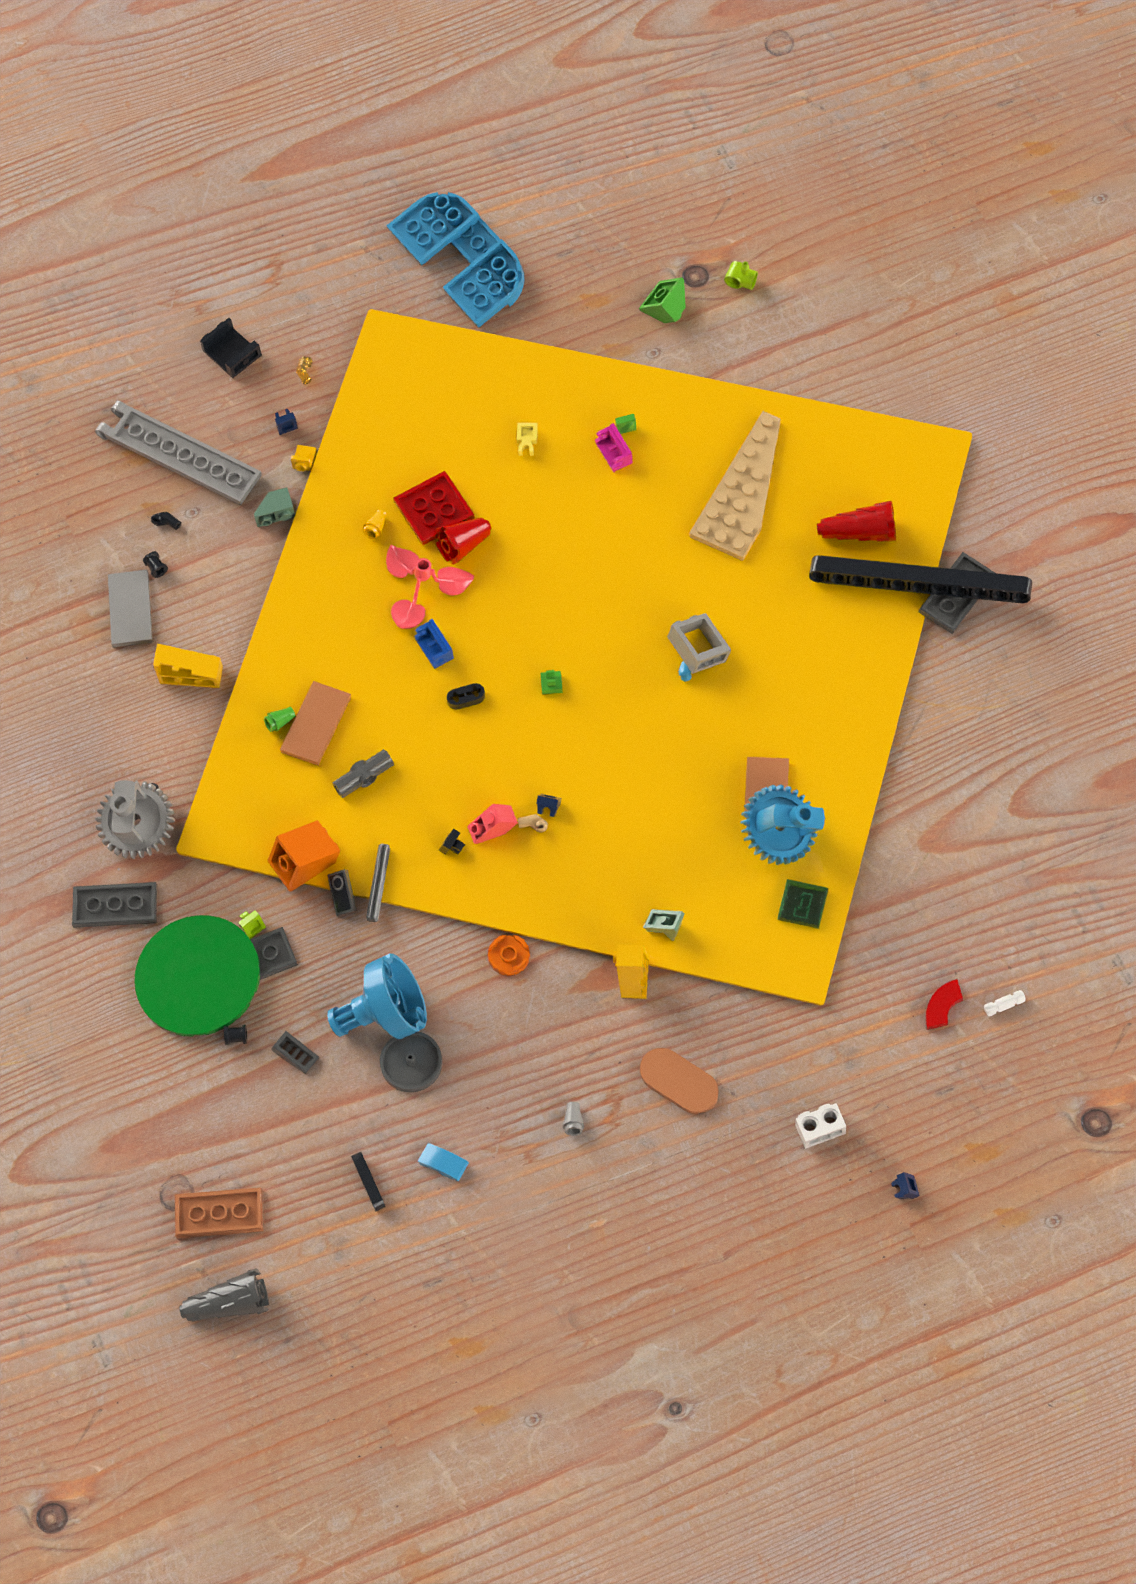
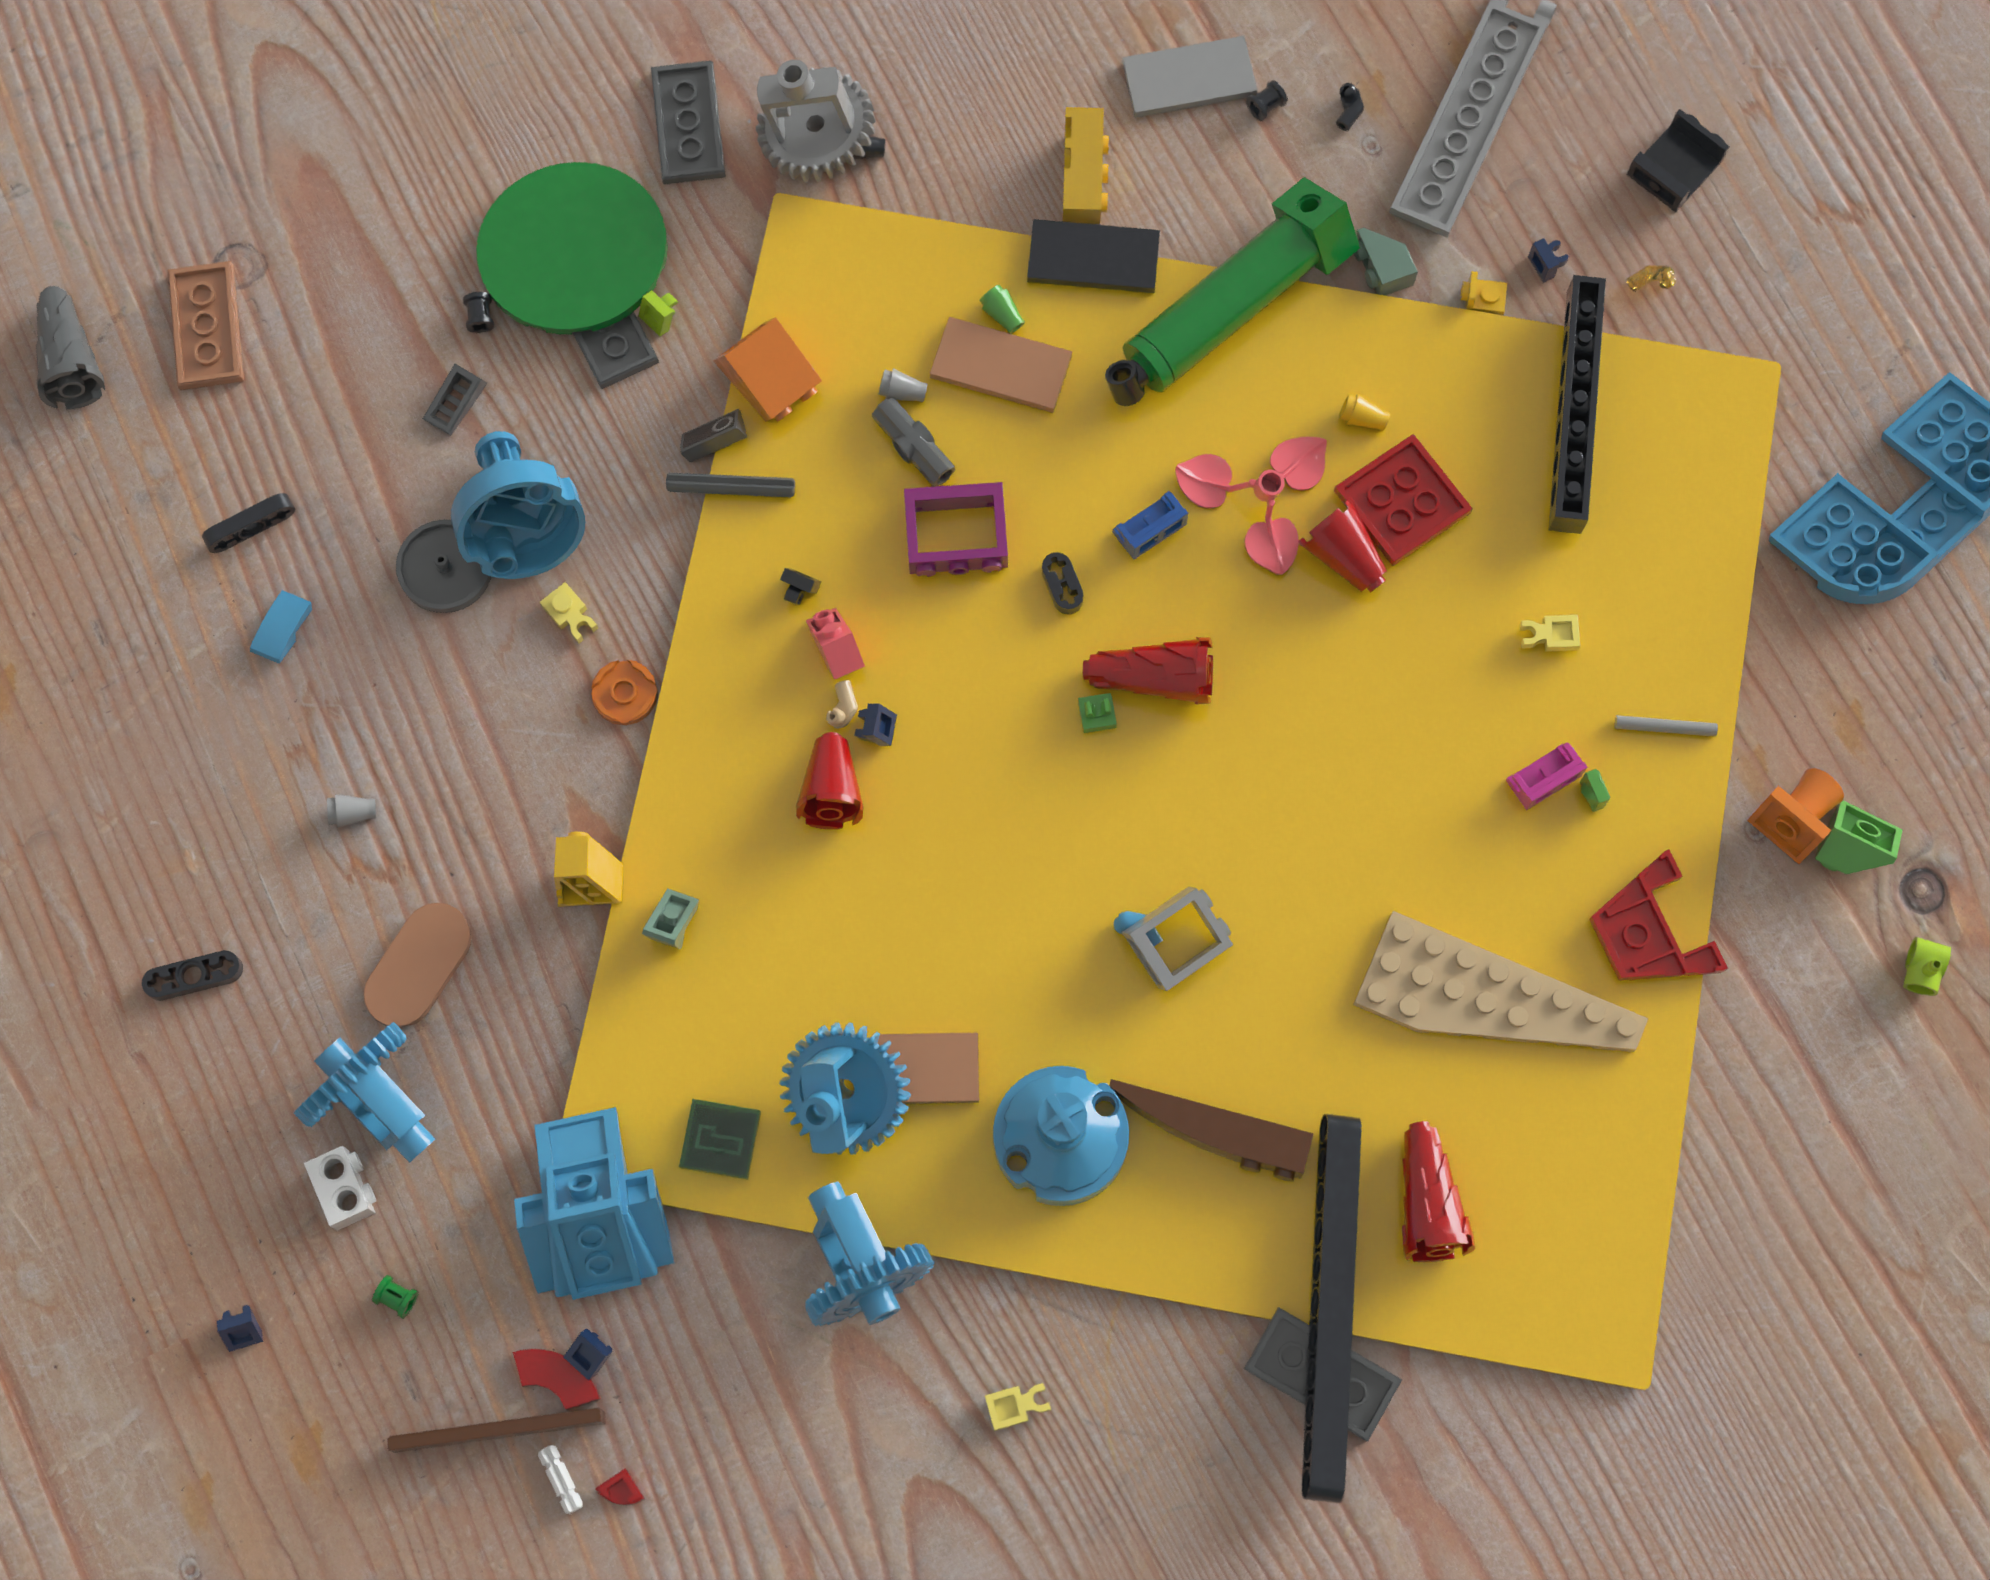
camera: 80 degrees right, 10 degrees up
(248, 666) = (1093, 256): none -> black tile
(257, 542) = (1308, 232): none -> green piece
(323, 781) = (901, 386): none -> light grey cone
(386, 409) = (1577, 405): none -> black brick
(435, 776) = (952, 498): none -> magenta window
(449, 987) = (566, 610): none -> light yellow plate
(531, 636) = (1165, 670): none -> red cone
(585, 827) = (830, 785): none -> red cone
(588, 387) = (1666, 725): none -> light grey bar
(651, 328) = (1794, 819): none -> orange plant
(667, 1205) = (169, 989): none -> black beam
(711, 411) = (1639, 936): none -> red wing
(751, 1097) = (368, 1094): none -> dark azure piece
(811, 711) = (1060, 1135): none -> dark azure piece
(816, 630) = (1223, 1132): none -> reddish brown slope
(849, 970) = (593, 1220): none -> dark azure piece
(890, 1094) = (395, 1296): none -> green bush
(902, 827) = (861, 1267): none -> dark azure piece
(931, 981) = (588, 1354): none -> dark blue tile
(969, 753) = (1010, 1407): none -> light yellow plate
(974, 1035) = (496, 1430): none -> reddish brown tile
(1011, 970) = (621, 1489): none -> red tile

